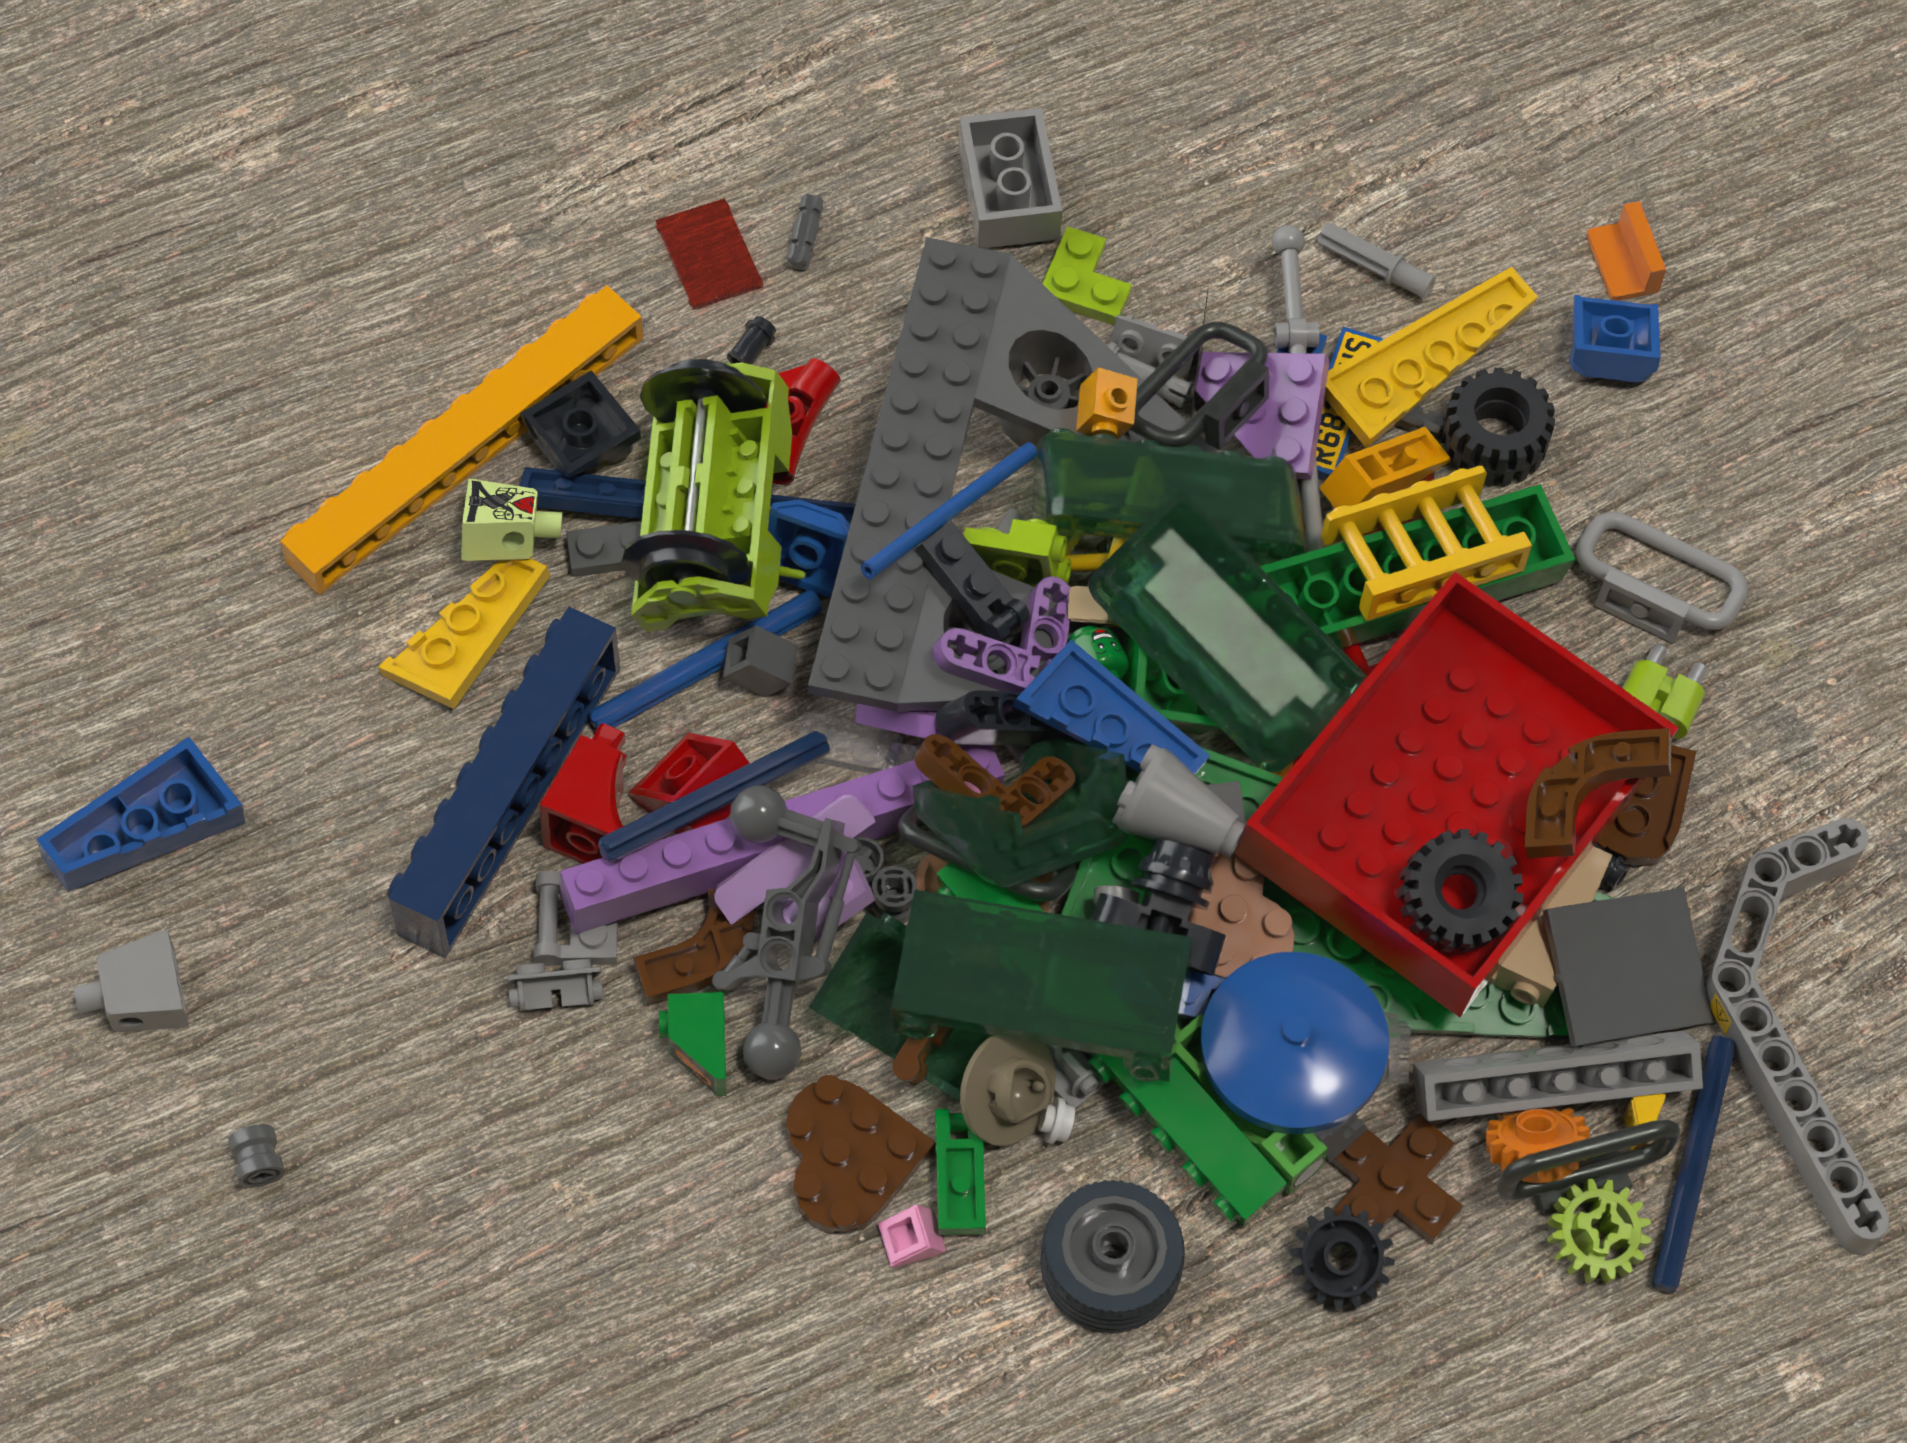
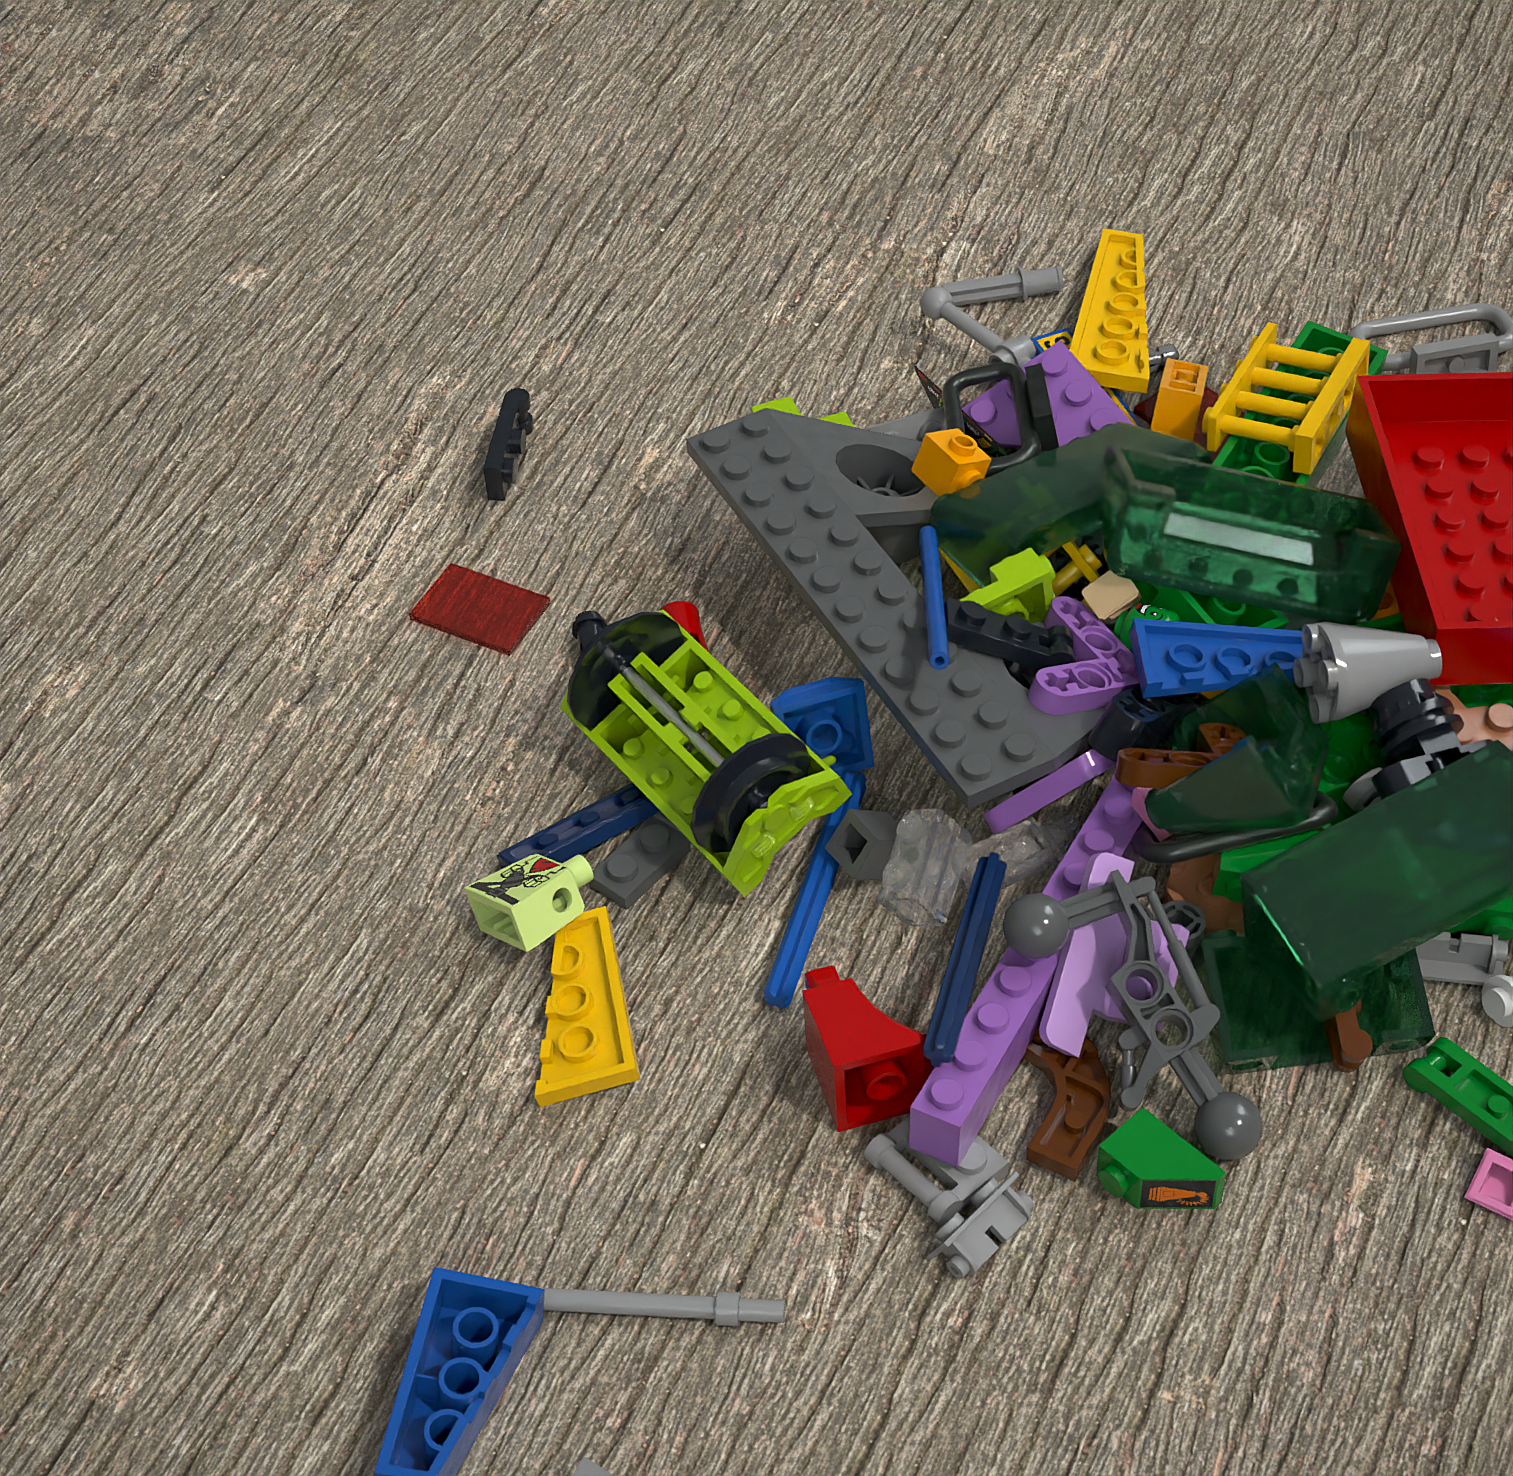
camera: 35 degrees left, 15 degrees down
(350, 904) = (726, 1308): none -> light grey bar
(457, 441) = (416, 882): light orange brick -> none
(504, 782) = (766, 1098): dark blue brick -> none
(581, 426) = (518, 786): black slope -> none
(685, 768) = (908, 967): red slope -> none
(771, 707) = (924, 867): none -> clear brick
(805, 232) = (545, 542): dark grey axle -> none
(850, 1154) = (1381, 1159): reddish brown plate -> none
(857, 123) = (507, 442): none -> black plate
(1007, 1089) = (1455, 996): dark tan piece -> none
(1010, 178) = (671, 394): light grey brick -> none
(1502, 398) = (1217, 317): black tyre -> none
(1615, 339) = (1229, 225): blue slope -> none
(1628, 255) = (1168, 175): orange panel -> none

